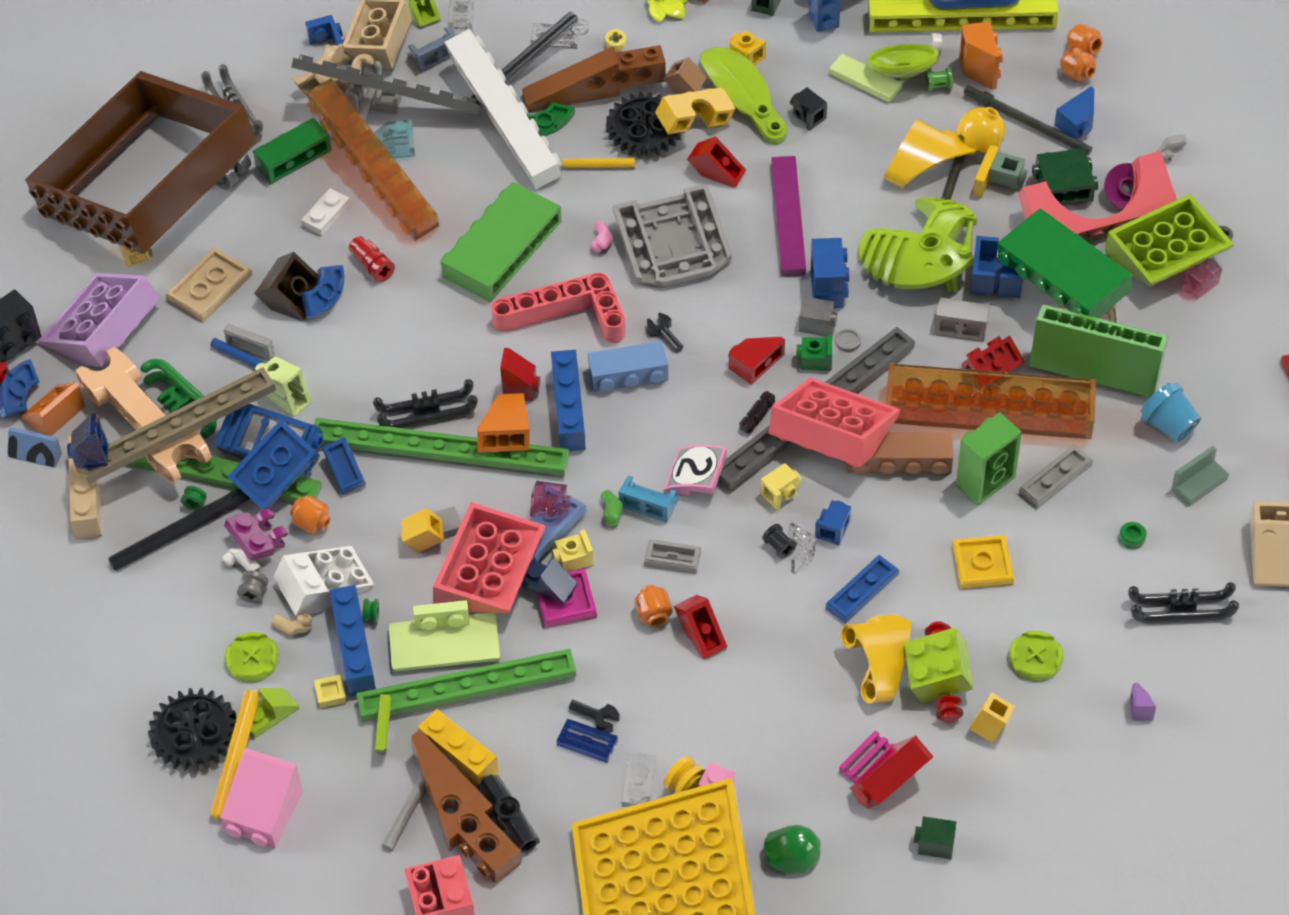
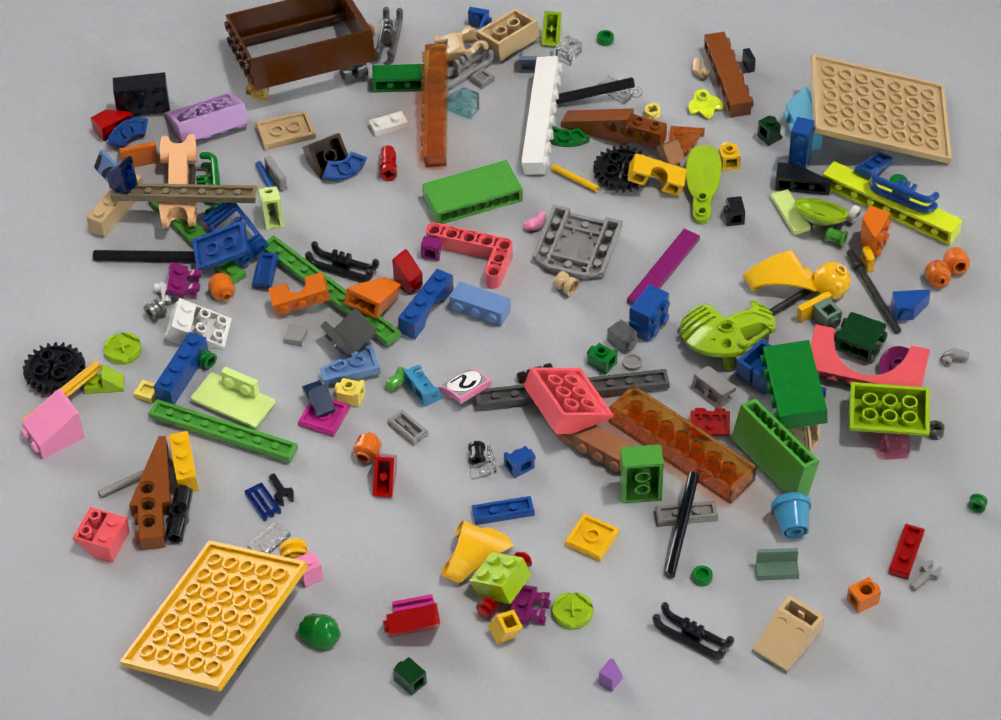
camera: 35 degrees right, 5 degrees down
(193, 497) = (168, 243): green bush -> none
(293, 627) = (158, 344): tan arm -> none
(376, 81) = (475, 60): dark grey plate -> none
(383, 724) = (153, 423): lime tile -> none
(402, 488) = (313, 293): none -> orange arch
(422, 530) = (274, 330): yellow brick -> none
(487, 560) = (292, 365): coral slope -> none
(512, 481) = (350, 333): none -> dark grey bracket
(514, 332) = (431, 248): none -> magenta slope
(549, 499) = (358, 351): clear pink brick -> none
(663, 330) = (523, 295): black bar -> none
(678, 49) = (687, 137): none -> clear orange wing
(701, 289) = (567, 284): none -> tan wheel
(716, 162) = (645, 214): red slope -> none
(755, 356) = (563, 339): red slope -> none
(780, 485) = (507, 421): light yellow brick -> none
(845, 36) = (800, 180): none -> black slope
(985, 680) = (524, 604): none -> magenta plate
(995, 86) = (868, 259): none -> yellow tile
(1067, 491) = (681, 524): none -> black axle

